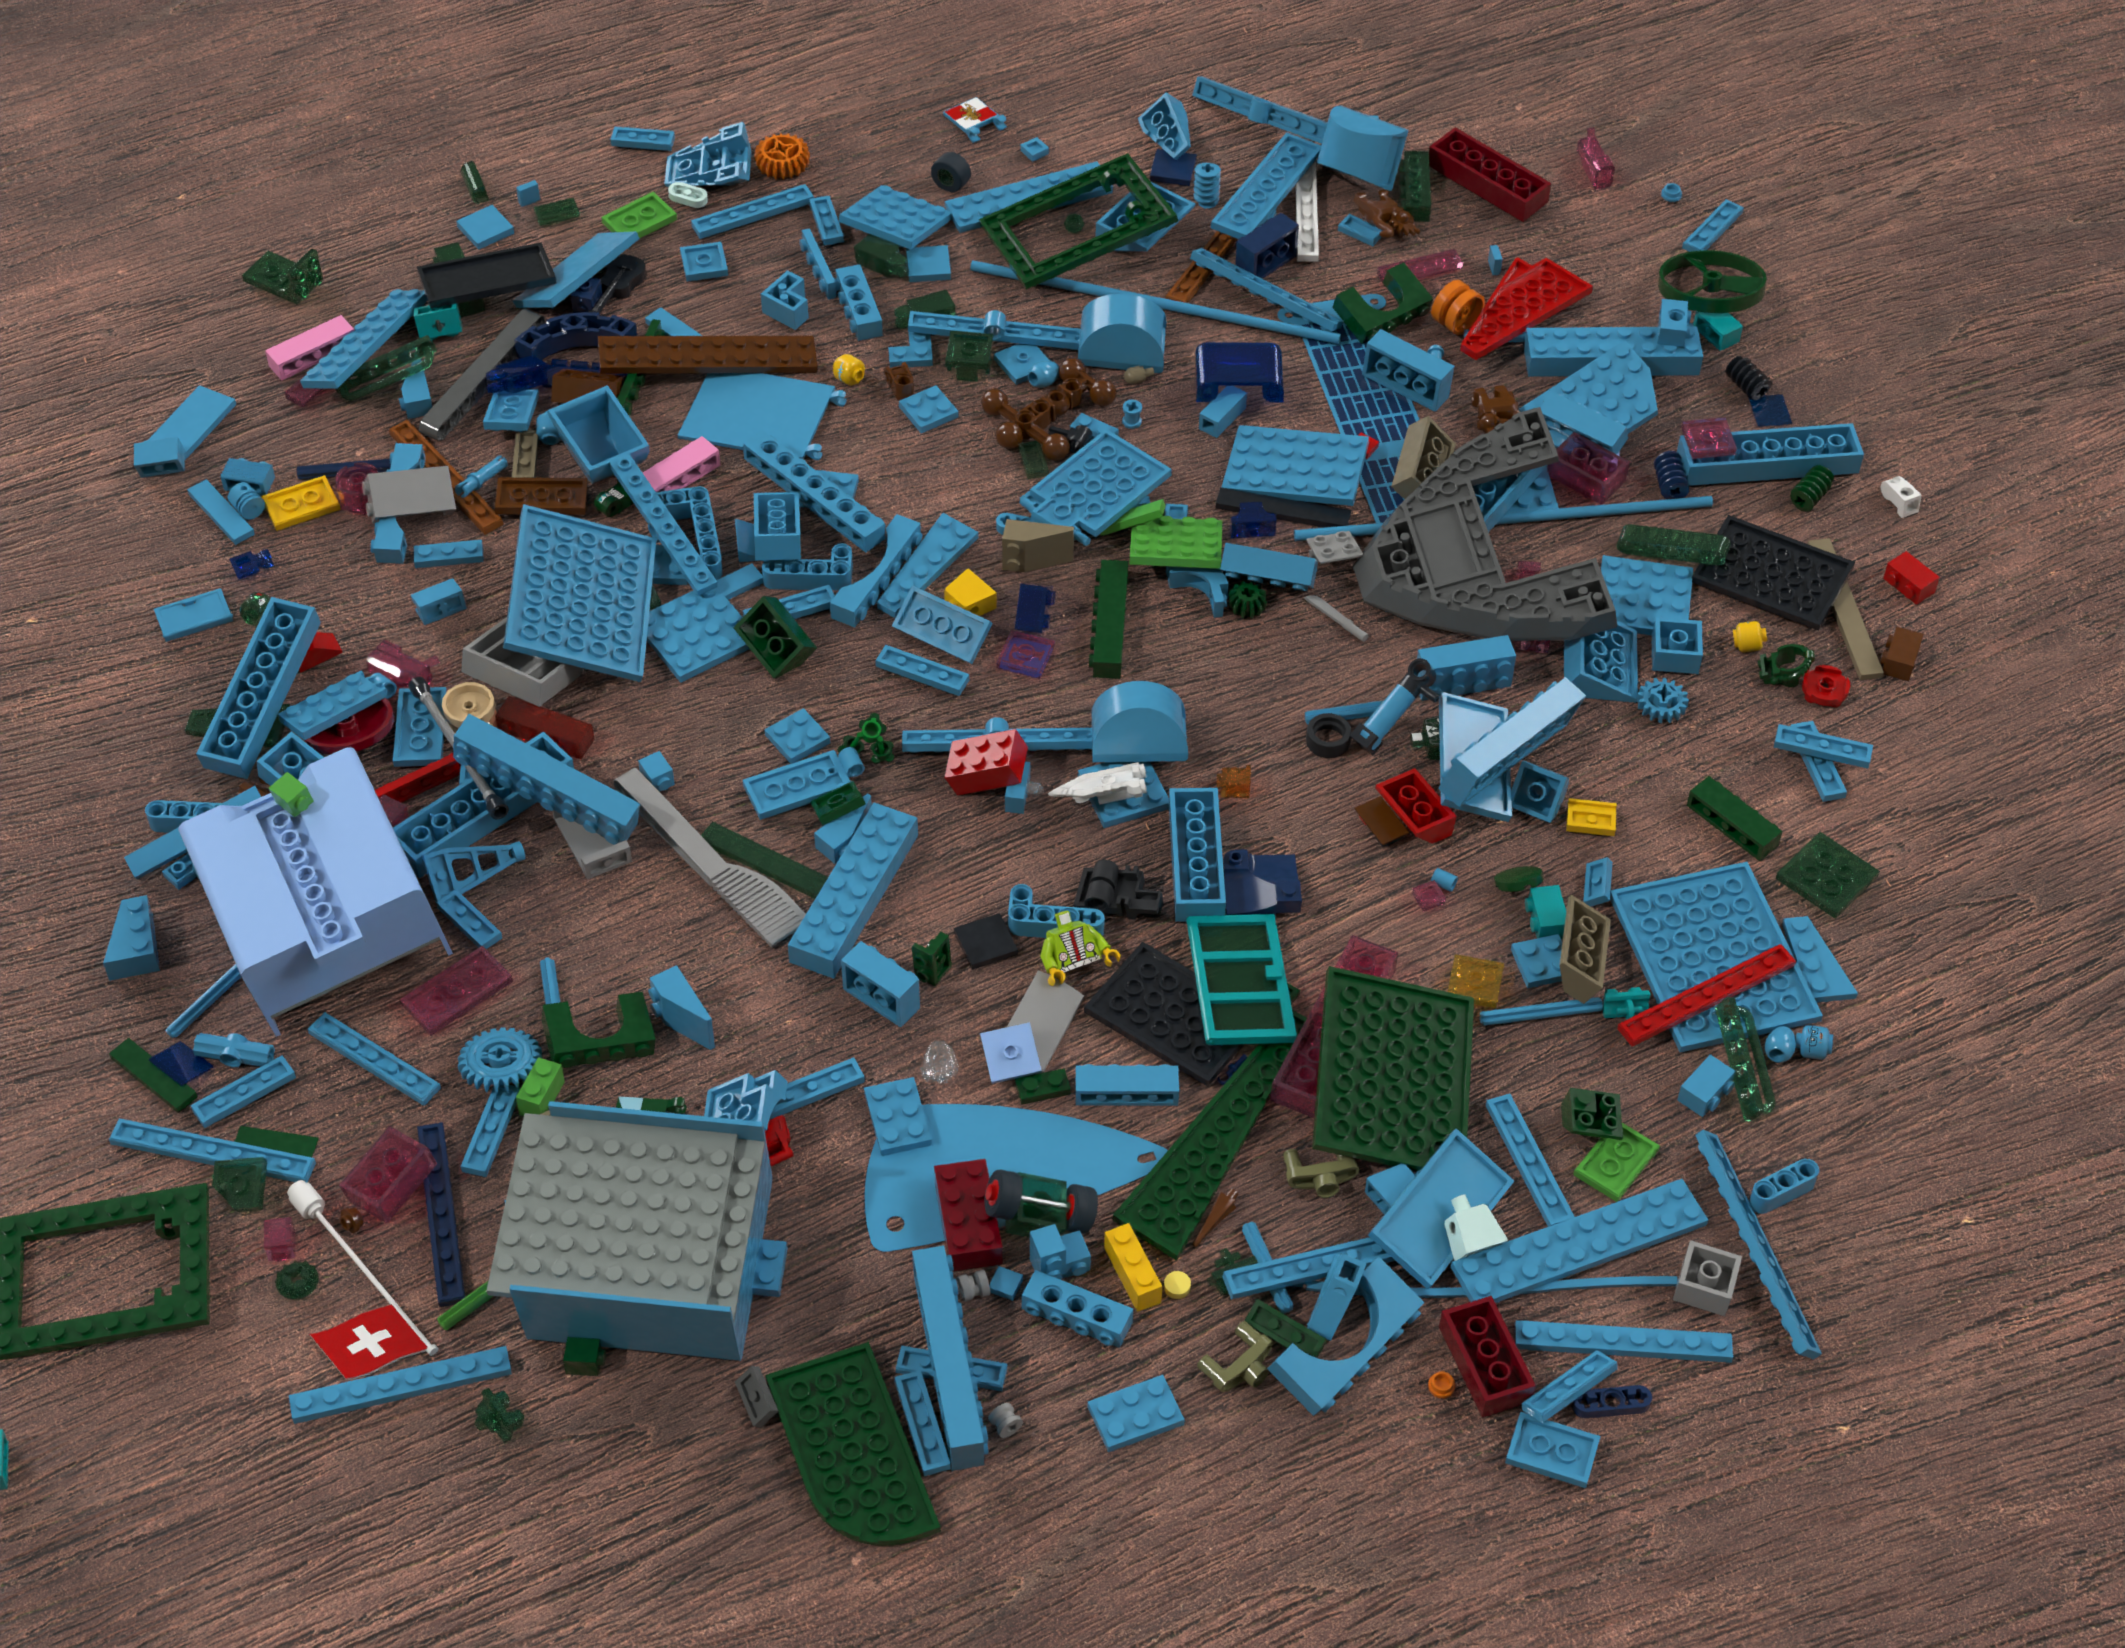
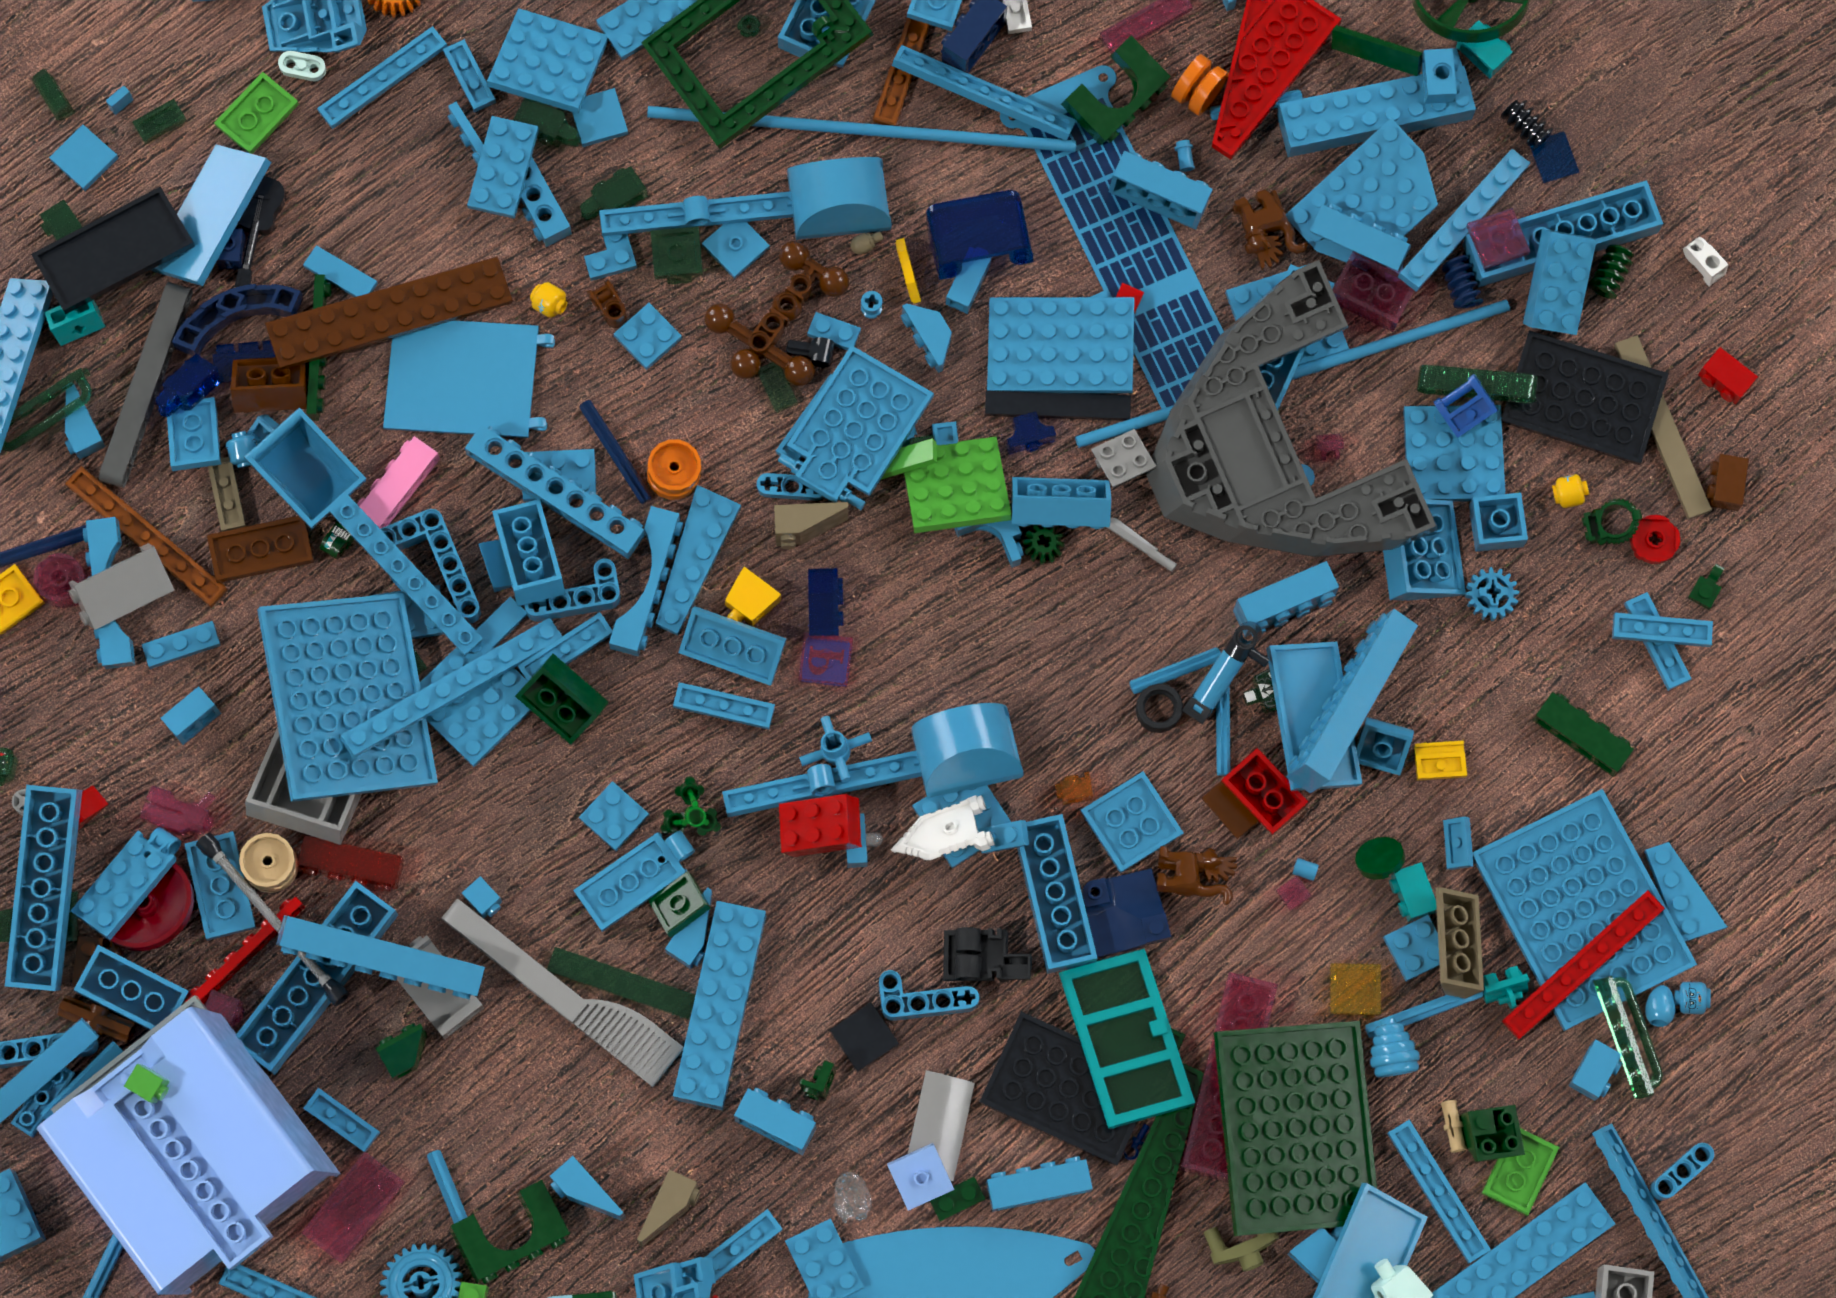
camera: 15 degrees left, 25 degrees up
(442, 875) = (299, 1075): dark azure plate -> none
(475, 480) = (184, 544): dark azure pin -> none
(545, 869) = (404, 1051): none -> dark green slope
(669, 607) = (449, 688): none -> dark azure plate
(703, 261) = (347, 166): dark azure plate -> none
(756, 1035) = (670, 1204): none -> dark tan slope
(786, 300) = (451, 214): dark azure brick -> none
(836, 272) = (503, 167): none -> dark azure plate
(876, 480) = (615, 451): none -> dark blue axle
(924, 494) = (669, 483): none -> orange wheel
(1017, 713) = (835, 756): none -> dark azure bar
(1043, 374) = (763, 265): dark azure animal -> none
(1073, 946) = (953, 1038): torso -> none
(1110, 619) = (905, 598): dark green brick -> none
(1158, 797) = (1007, 836): none -> dark azure plate
(1170, 396) = (908, 271): none -> yellow tile
(1179, 439) = (929, 332): none -> dark azure slope
(1283, 816) = (1131, 822): none -> dark azure plate
(1327, 859) = (1187, 870): none -> reddish brown animal
(1387, 757) = (1223, 734): none -> dark azure axle
(1422, 453) = (1195, 312): dark tan slope -> none
(1503, 1031) = (1393, 1051): none -> dark azure piece
(1554, 1109) = (1453, 1126): none -> tan pin
(1620, 307) = (1376, 50): none -> dark green tile
(1662, 559) = (1469, 413): none -> blue plate
(1669, 434) = (1455, 228): none -> dark azure plate
(1761, 477) = (1559, 282): none -> dark azure brick
(1827, 875) = (1682, 786): clear green plate -> none
(1872, 731) = (1705, 589): none -> dark green plate

